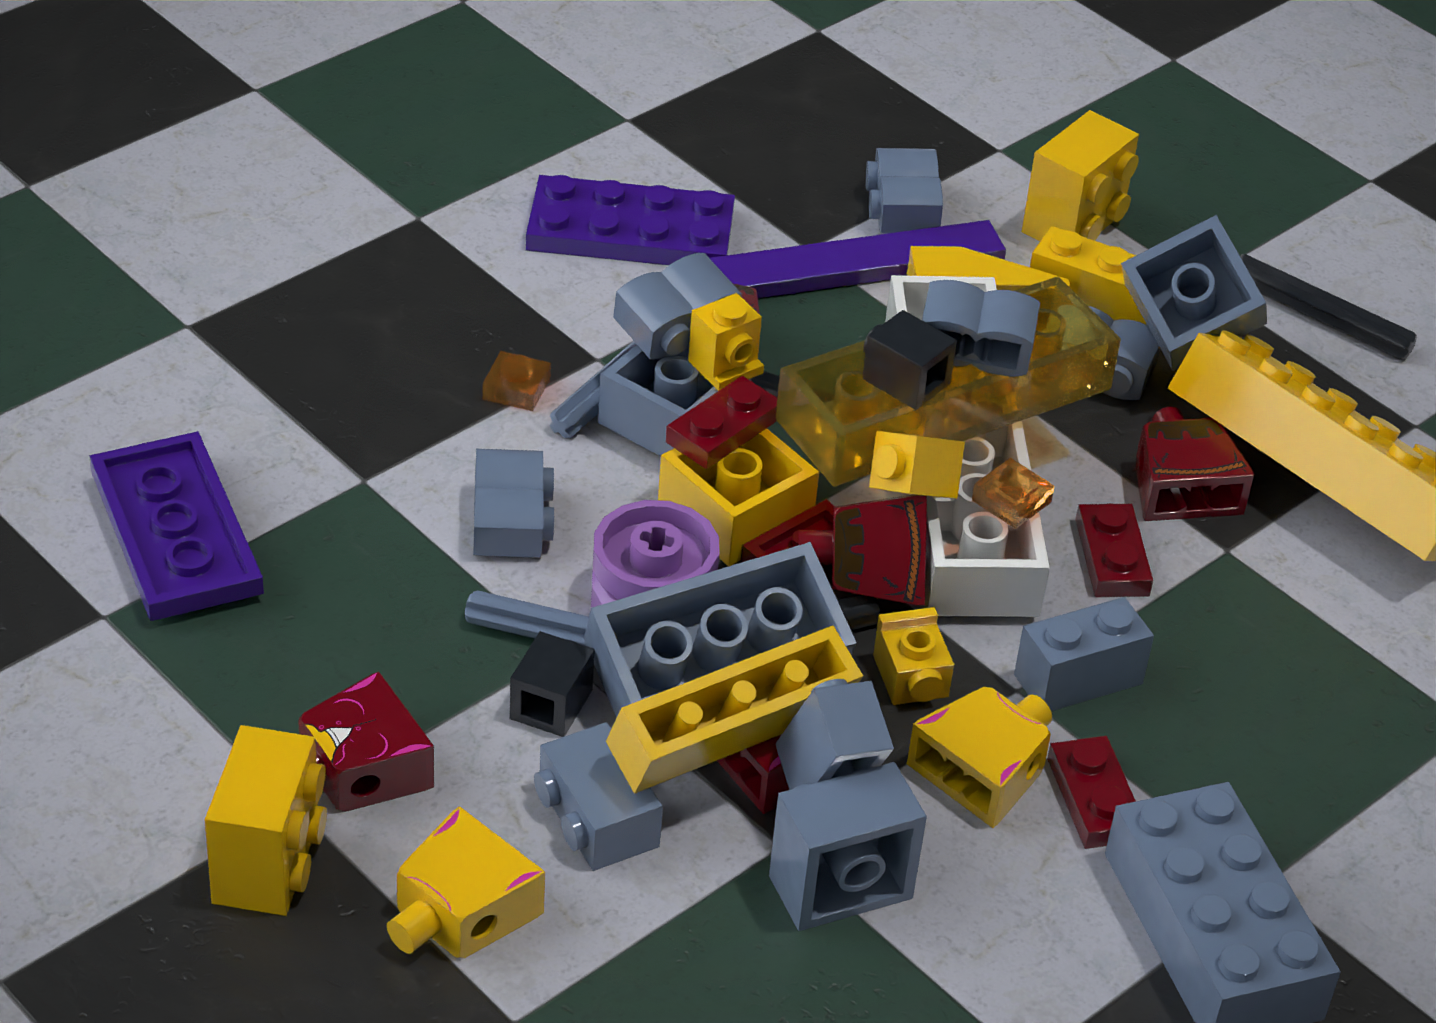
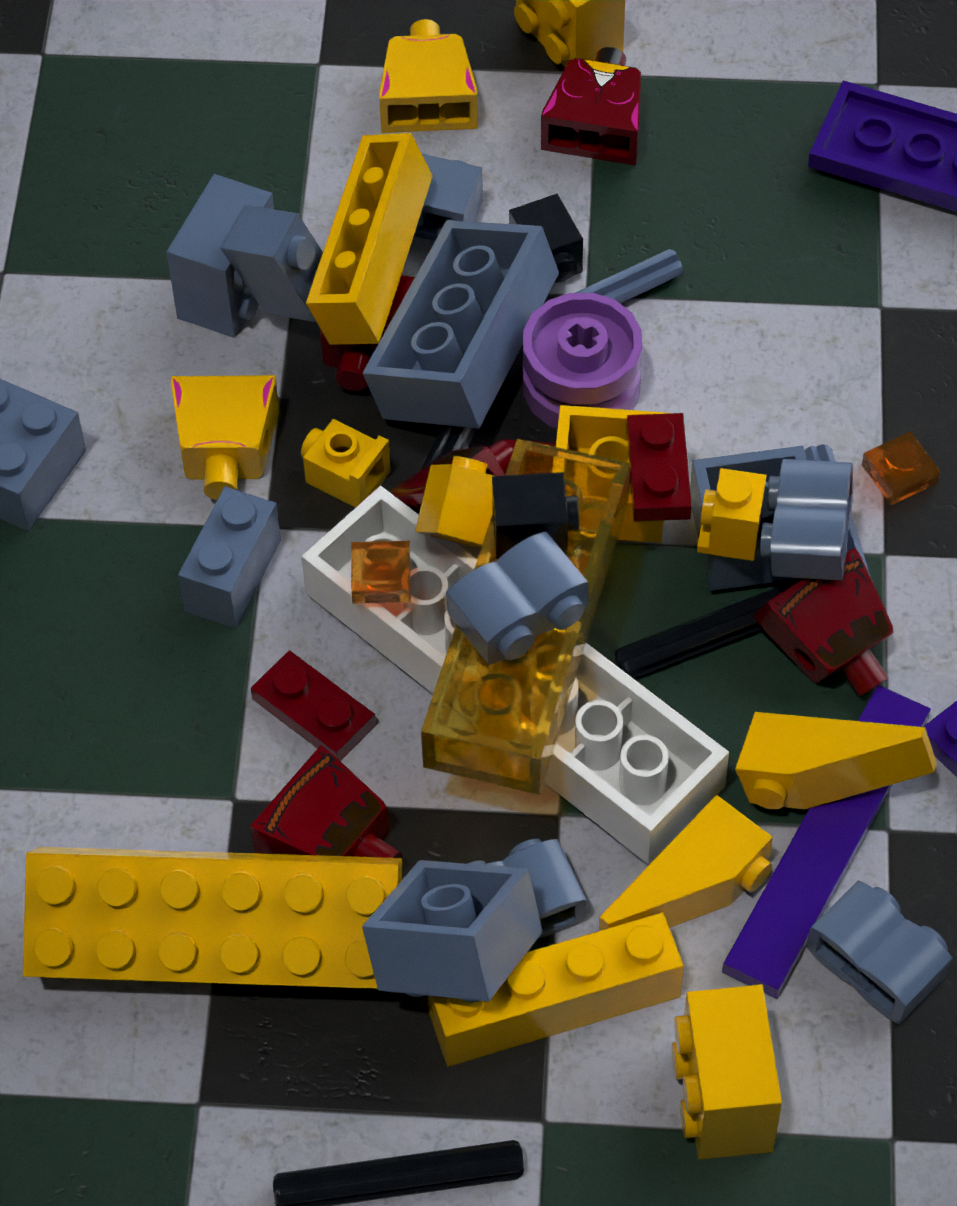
camera: 140 degrees right, 15 degrees up
(511, 503) = (751, 345): sand blue brick -> none
(824, 258) = (823, 760): none -> yellow slope
(1090, 785) = (130, 480): dark red plate -> none

